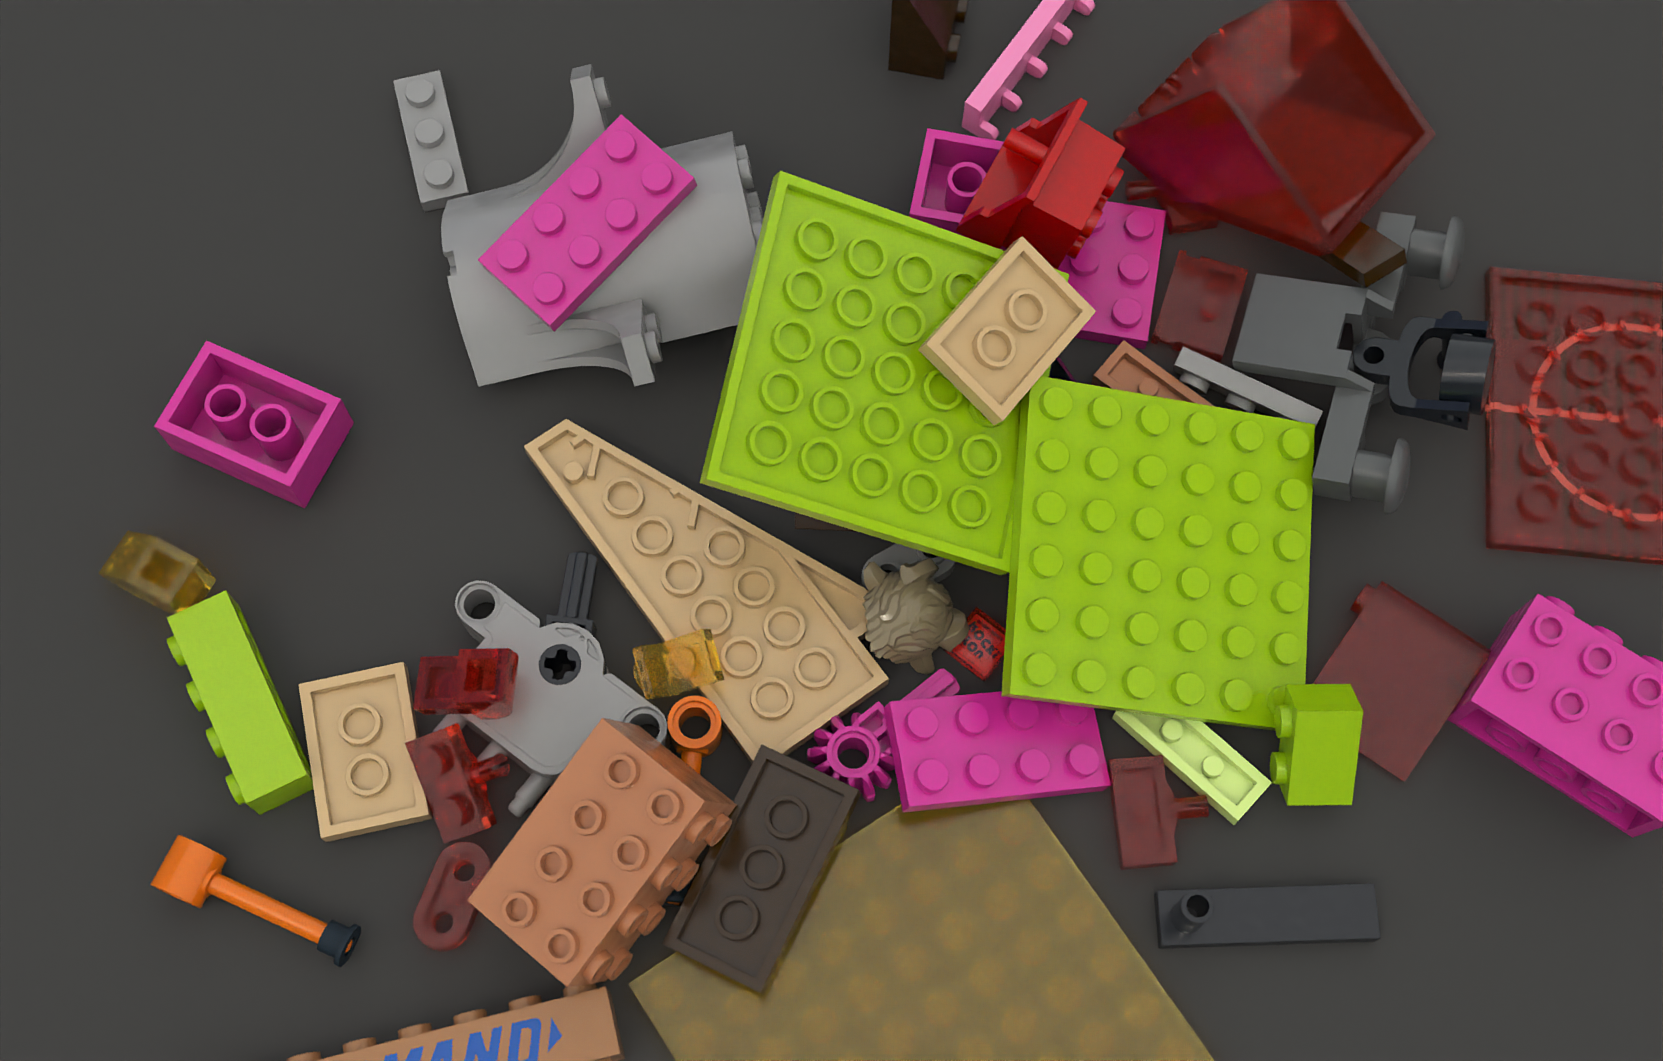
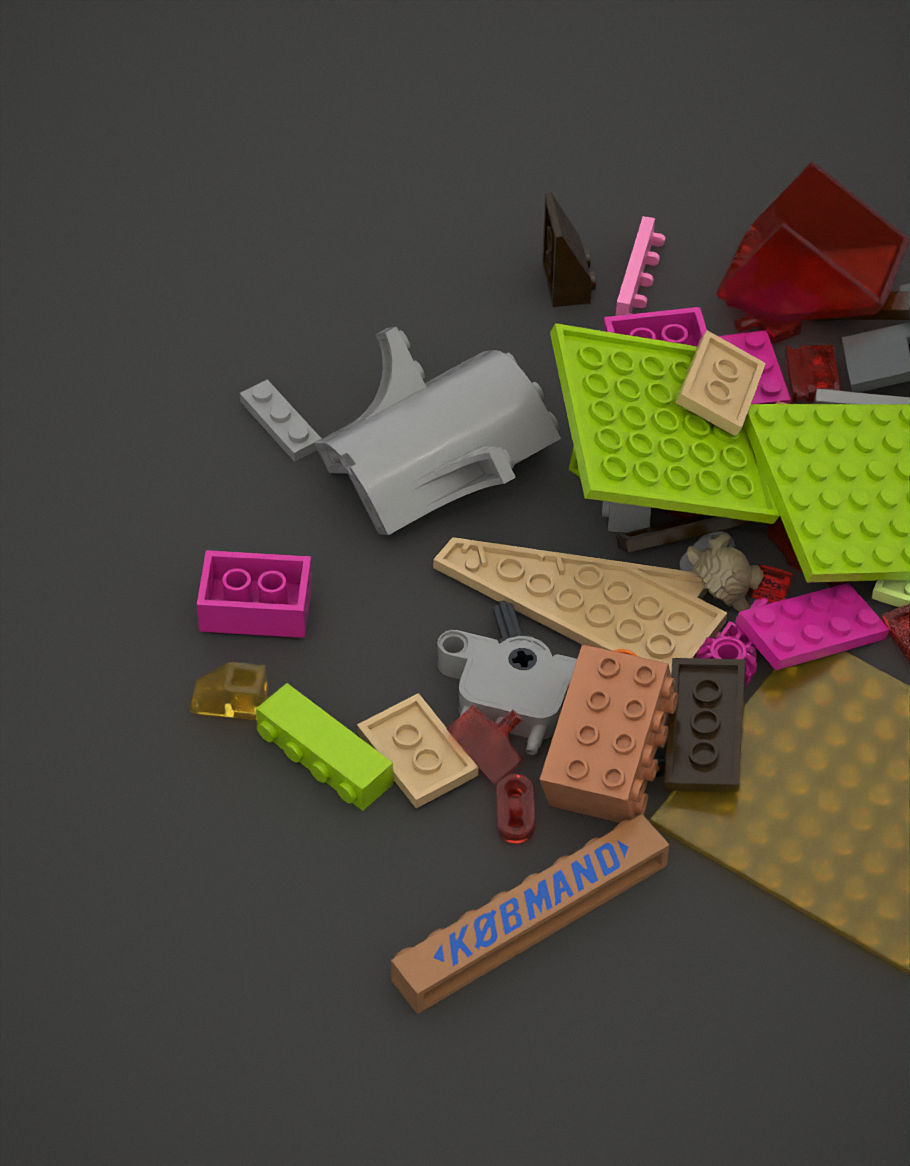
camera: 20 degrees left, 20 degrees down
(195, 873) = (342, 845): orange piece -> none
(471, 683) = (484, 673): clear red brick -> none
(587, 222) = (429, 409): dark pink plate -> none
(677, 665) = (599, 633): clear yellow bracket -> none
(1046, 186) = (700, 303): red piece -> none

